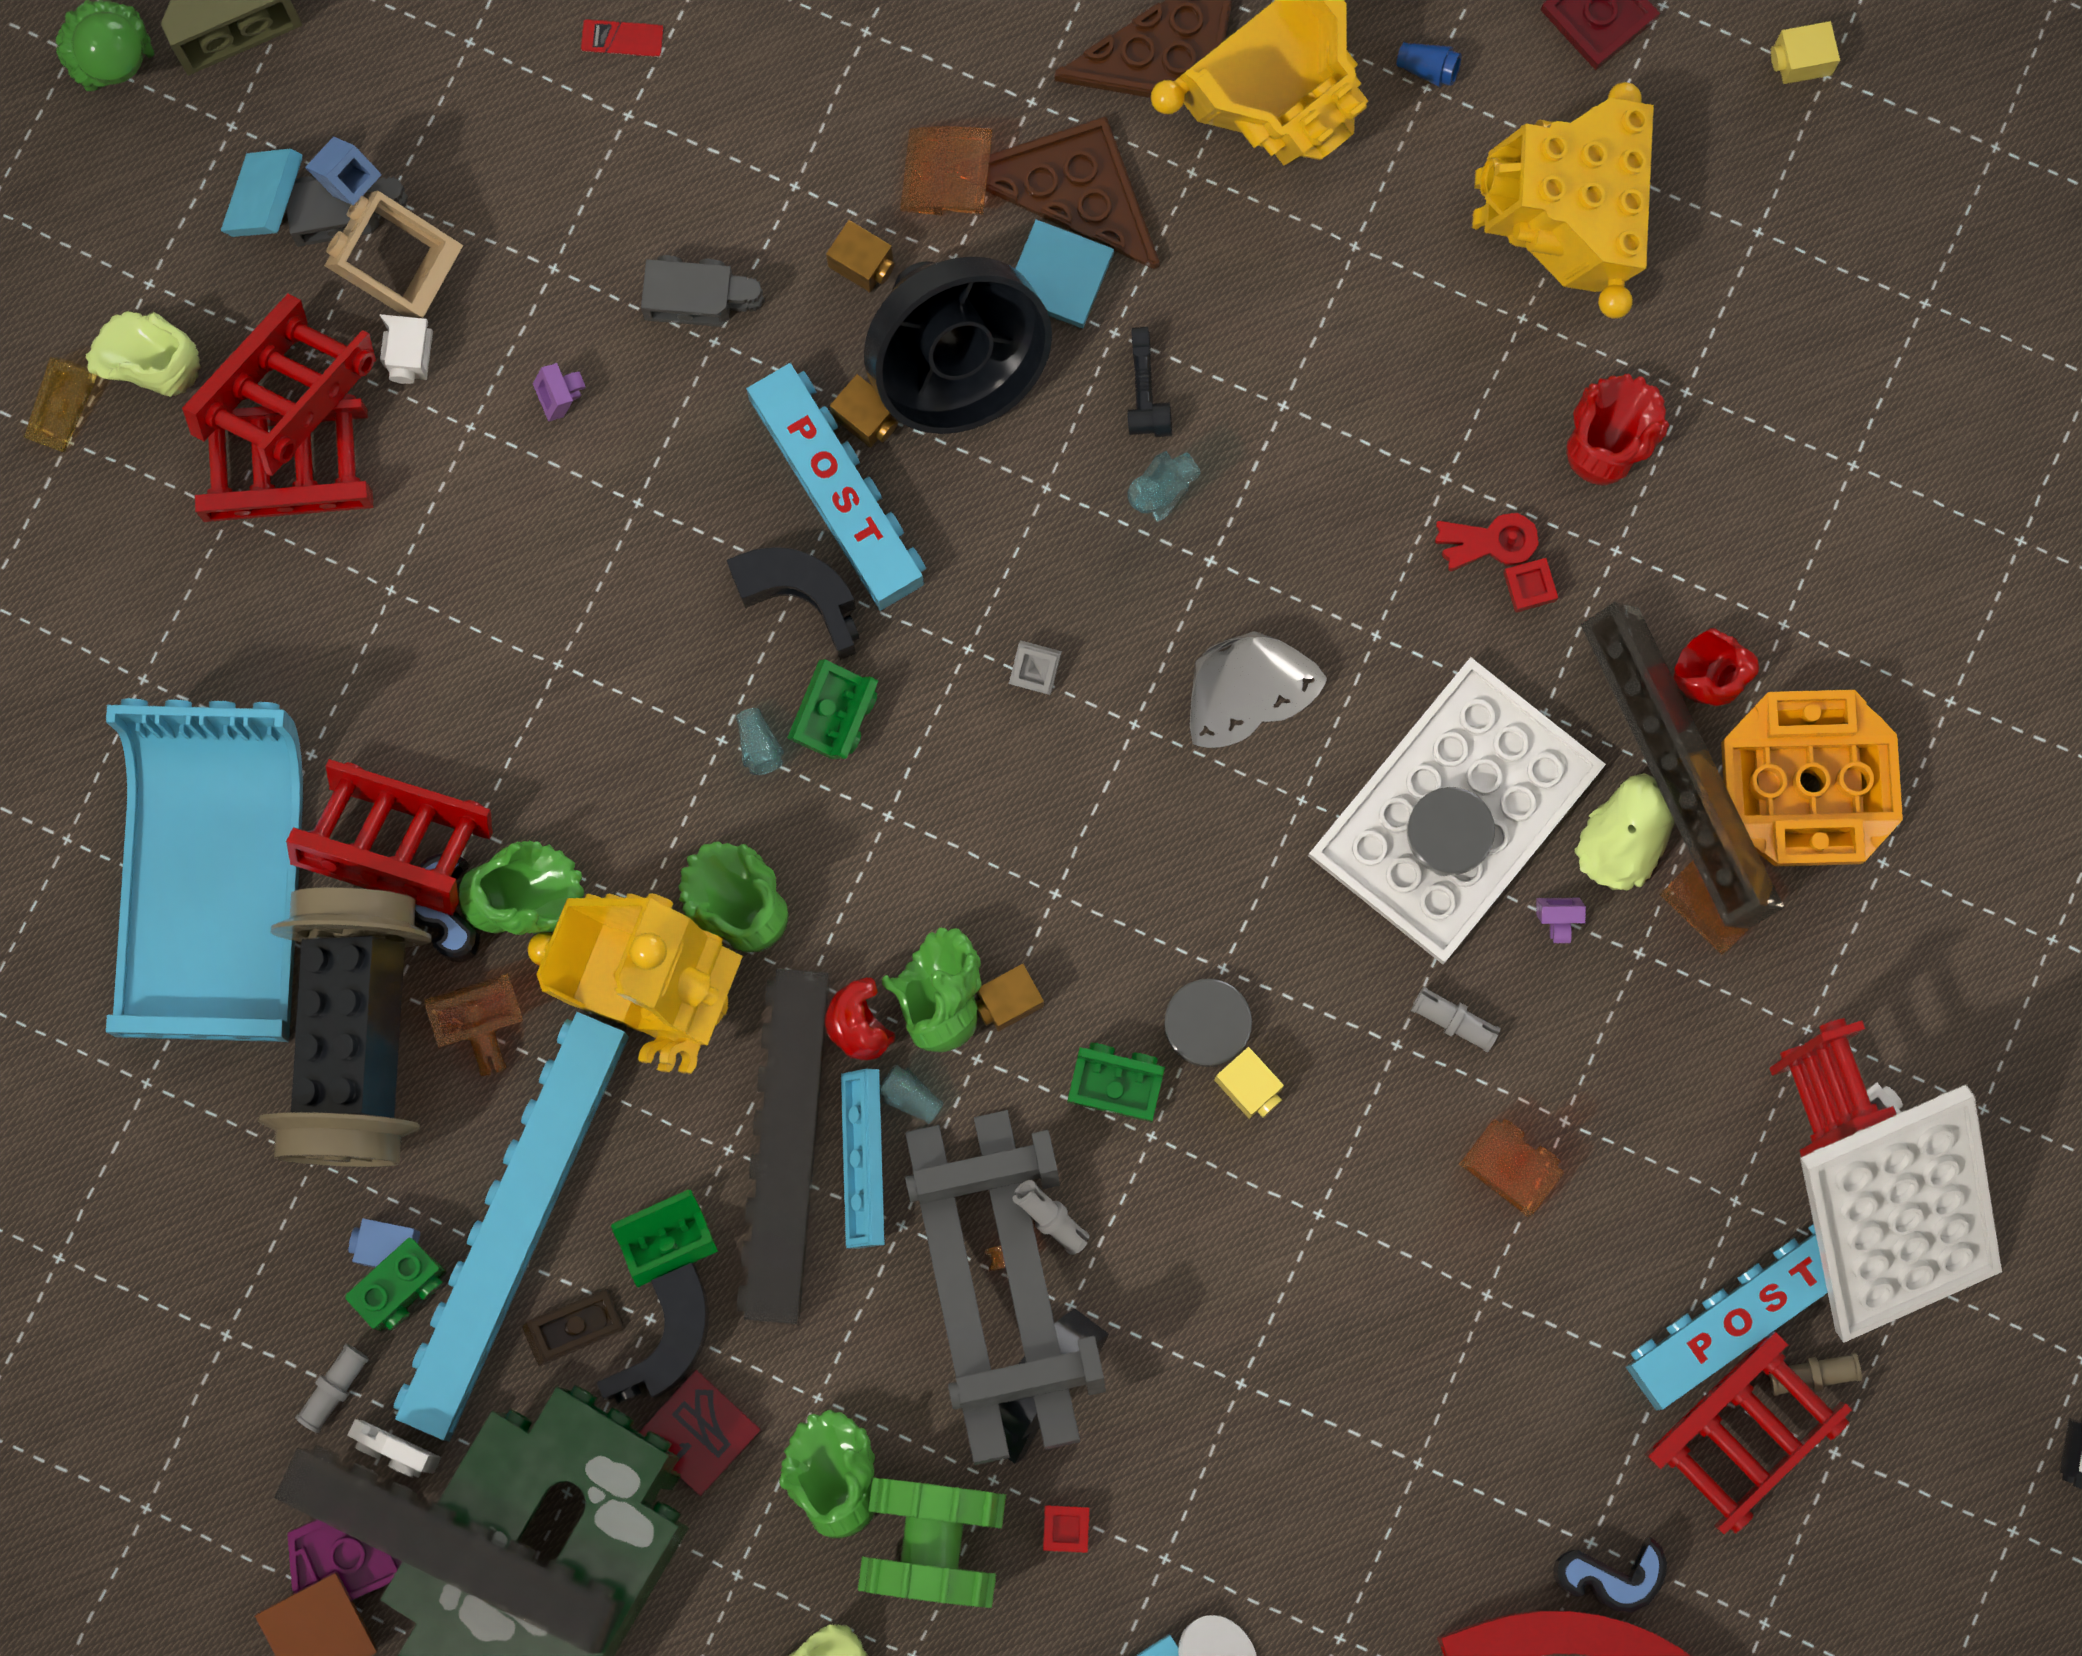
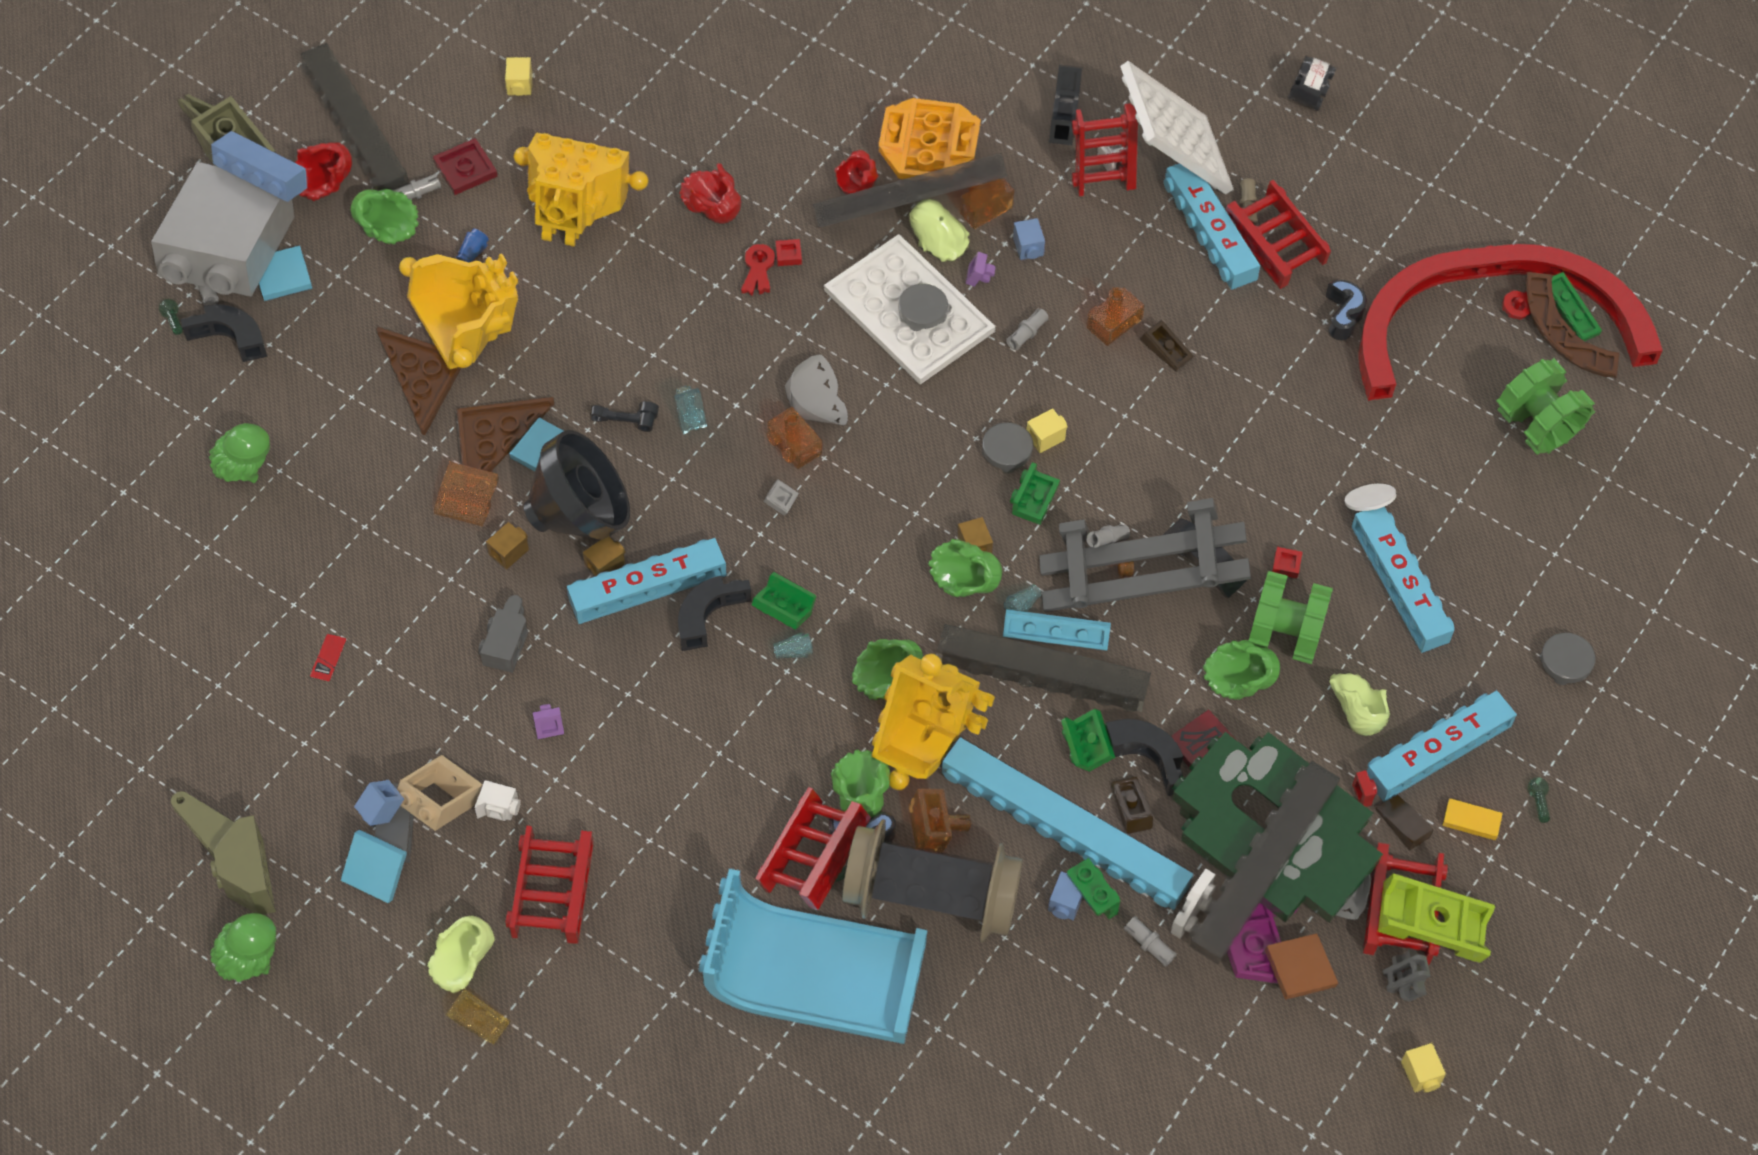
camera: 80 degrees left, 20 degrees down
(262, 353) = (500, 890): red fence -> none
(853, 1024) = (976, 614): red hair -> none
(1151, 665) = (794, 438): none -> clear orange brick
(1473, 1267) = (1166, 345): none -> dark brown slope
(1644, 992) = (1028, 239): none -> medium blue brick
(1944, 1013) = (1065, 104): none -> black arch

